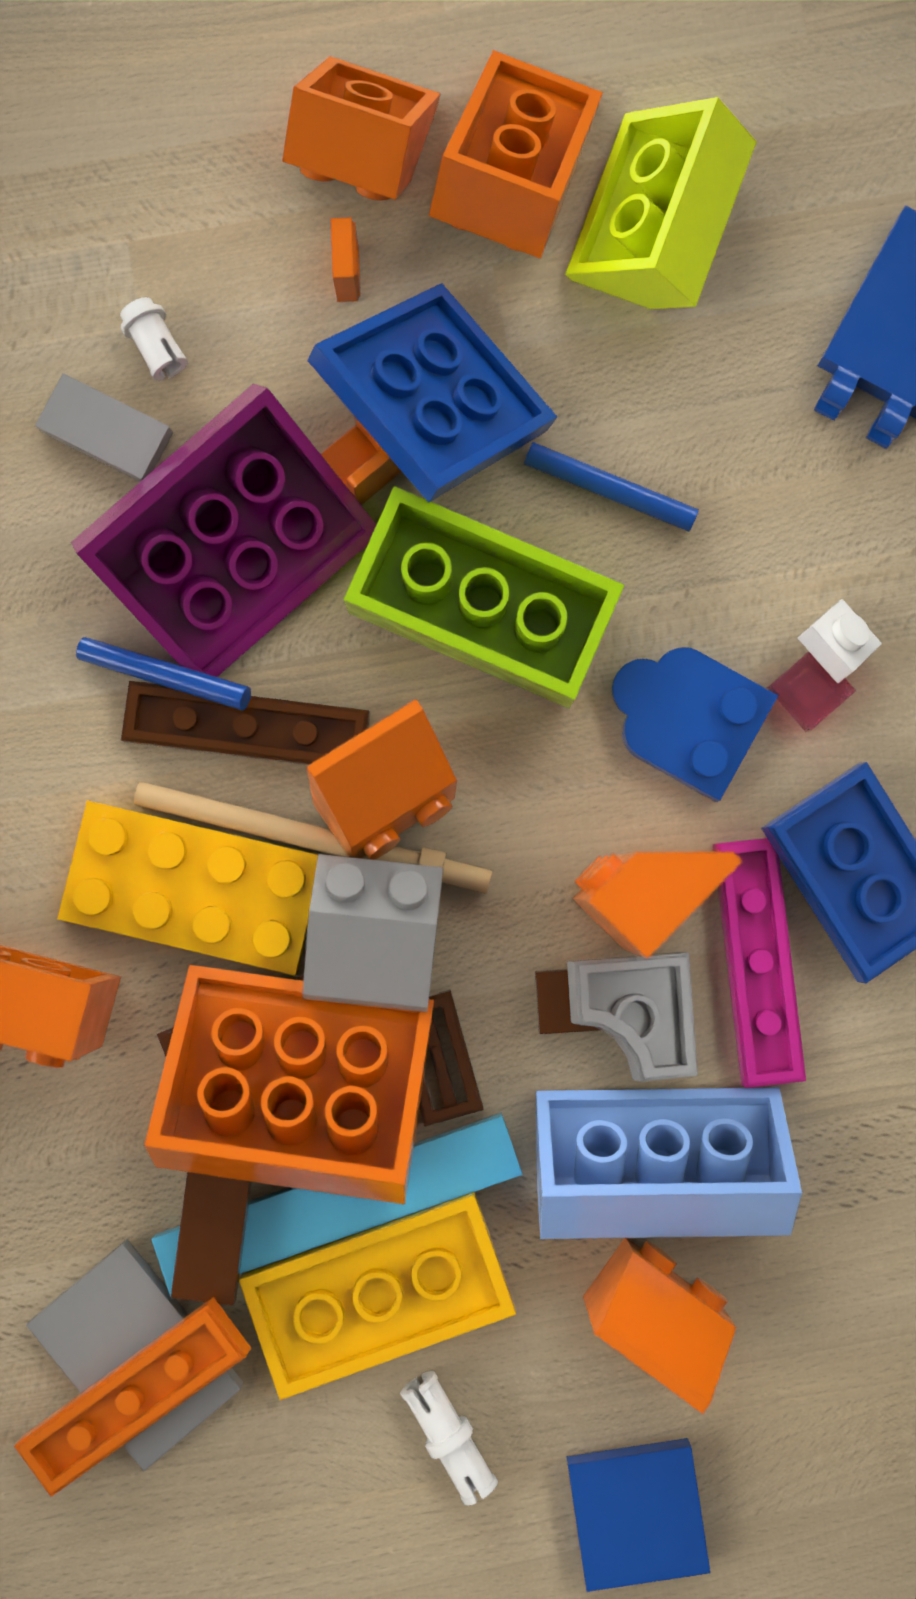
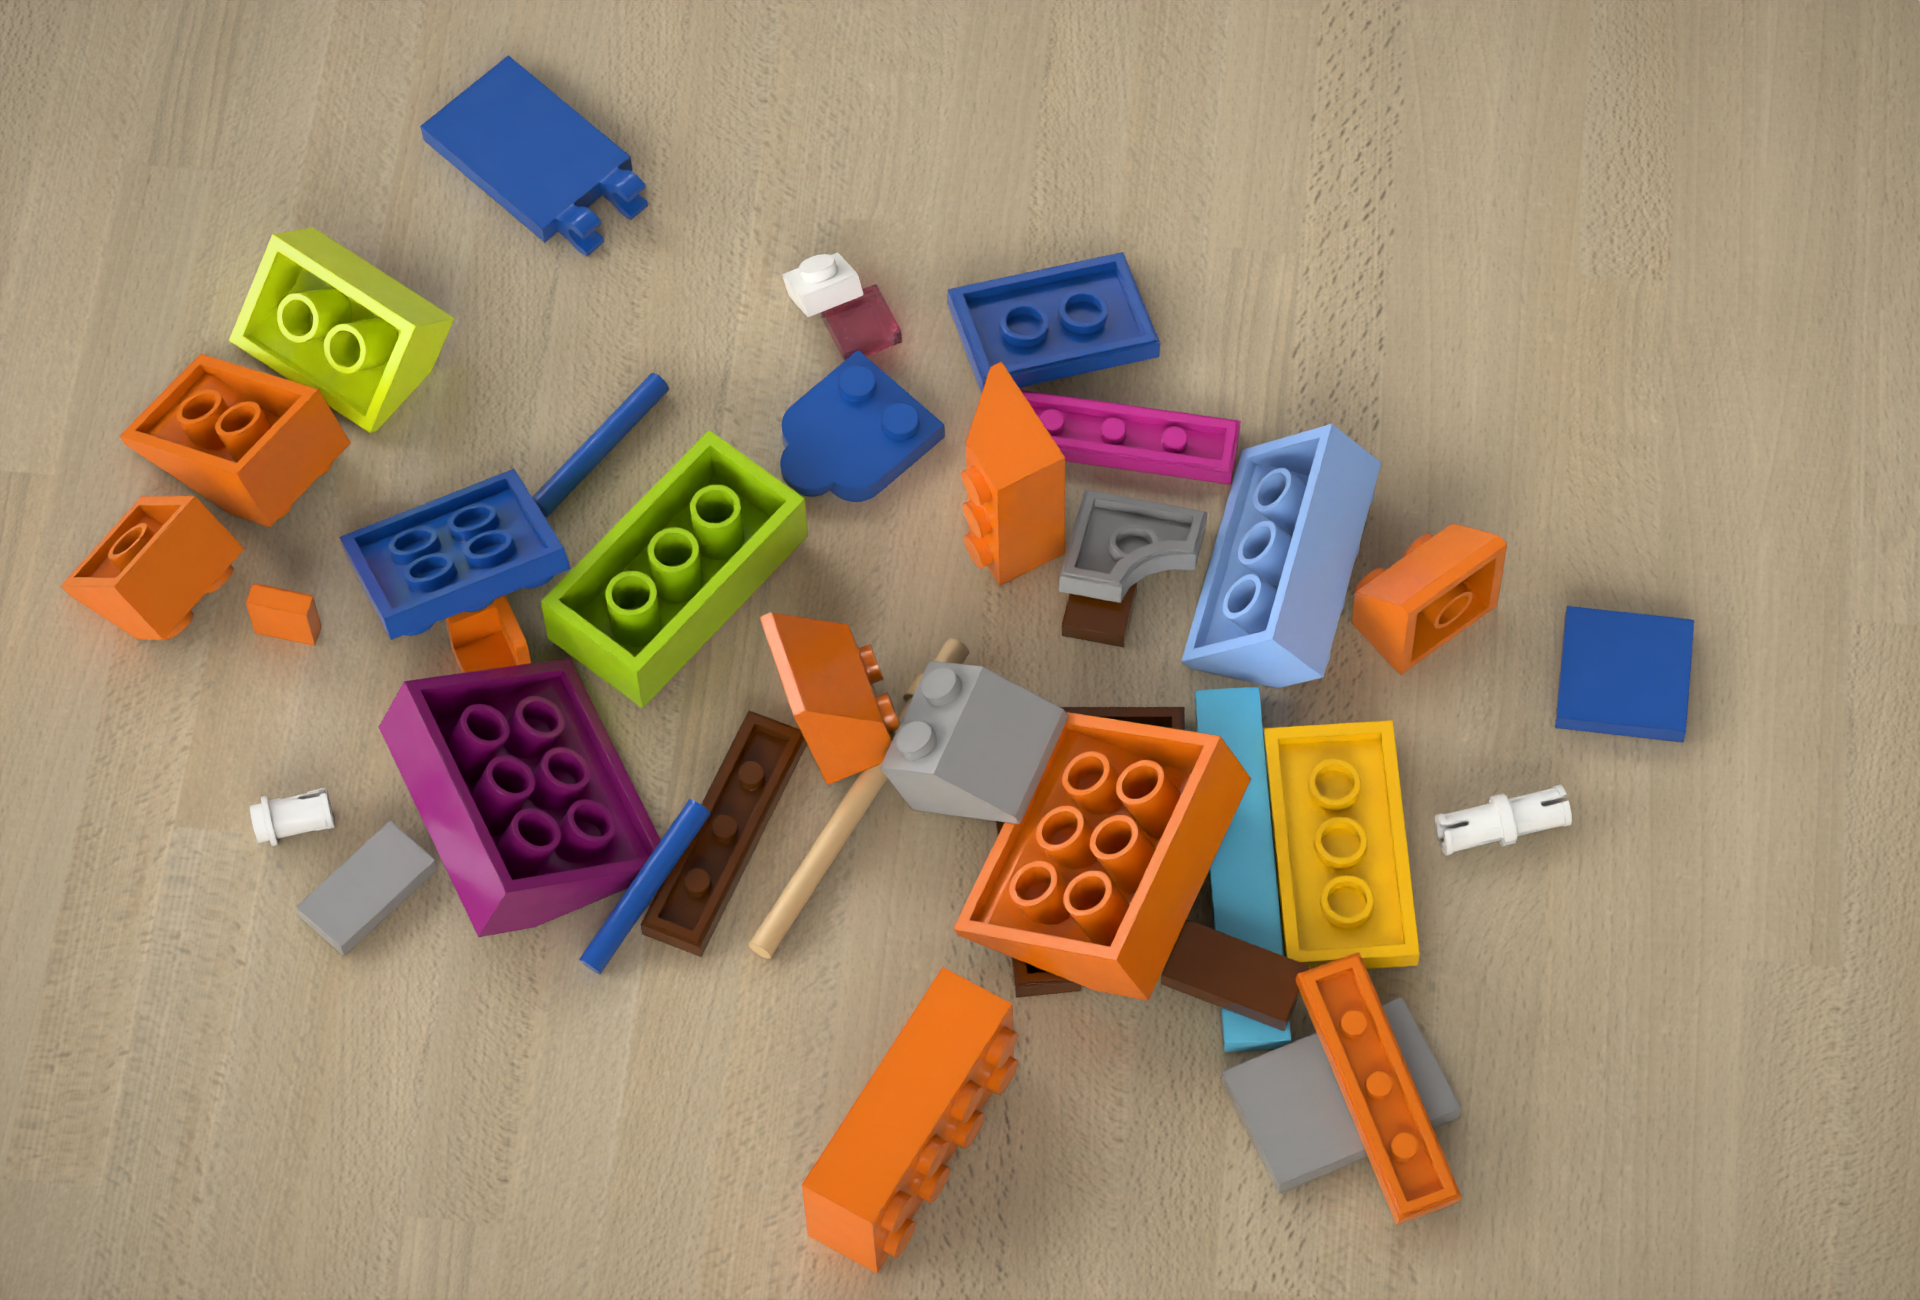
camera: 70 degrees left, 25 degrees down
(190, 888) = (873, 924): yellow plate -> none

